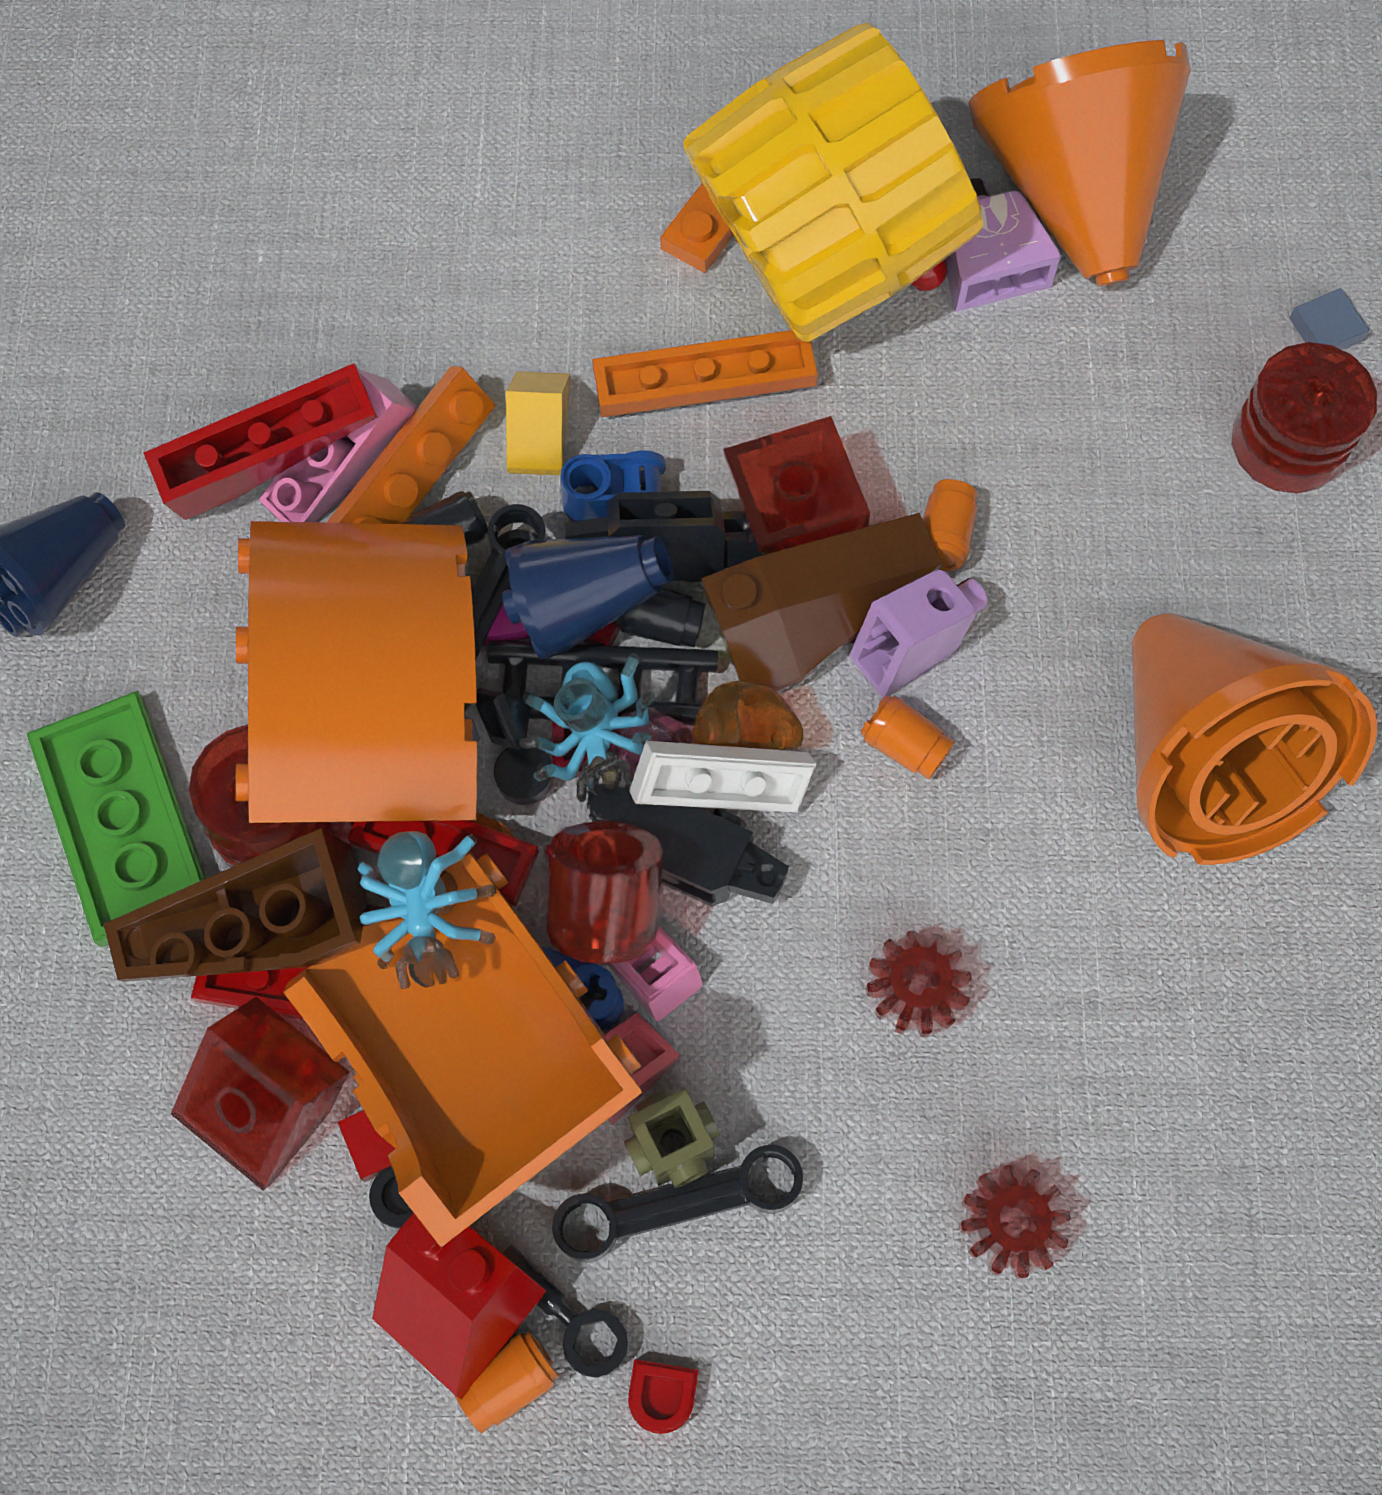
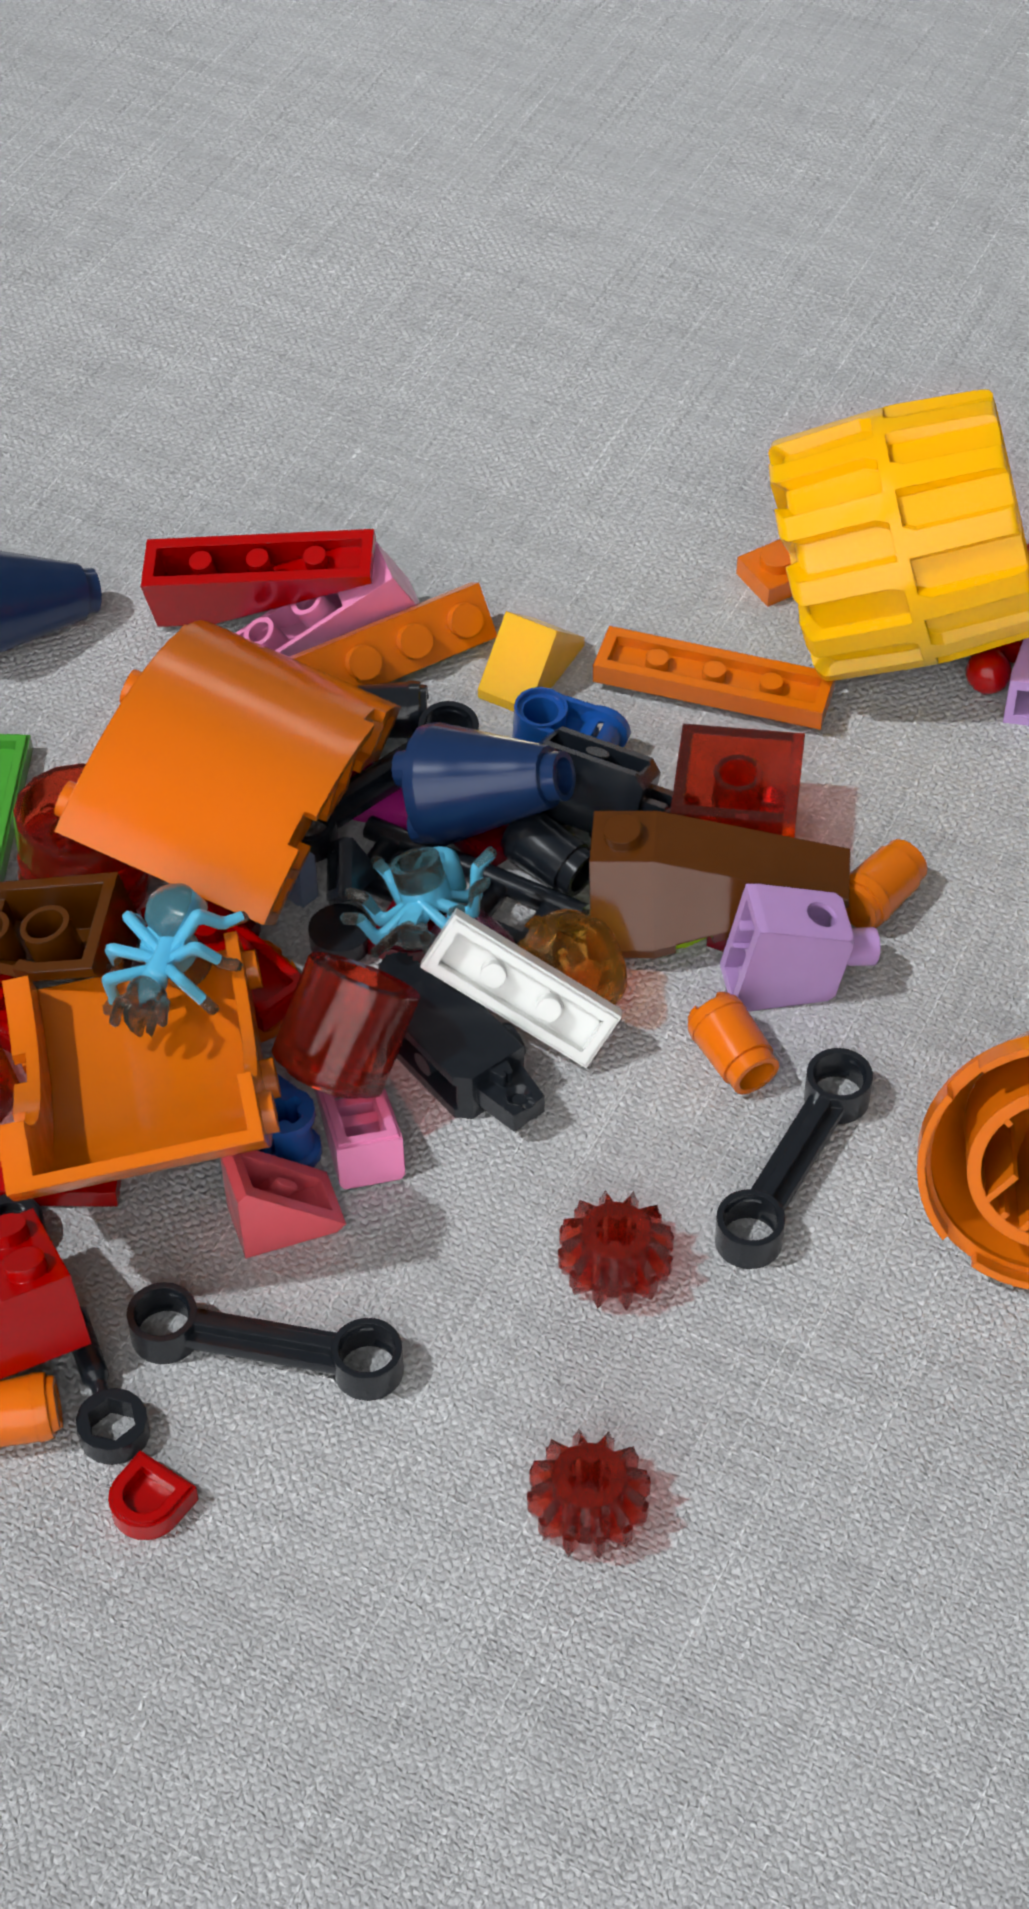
camera: 25 degrees right, 20 degrees down
(668, 1114) = (289, 1268): olive brick -> none
(1008, 821) = (793, 1158): none -> black piece

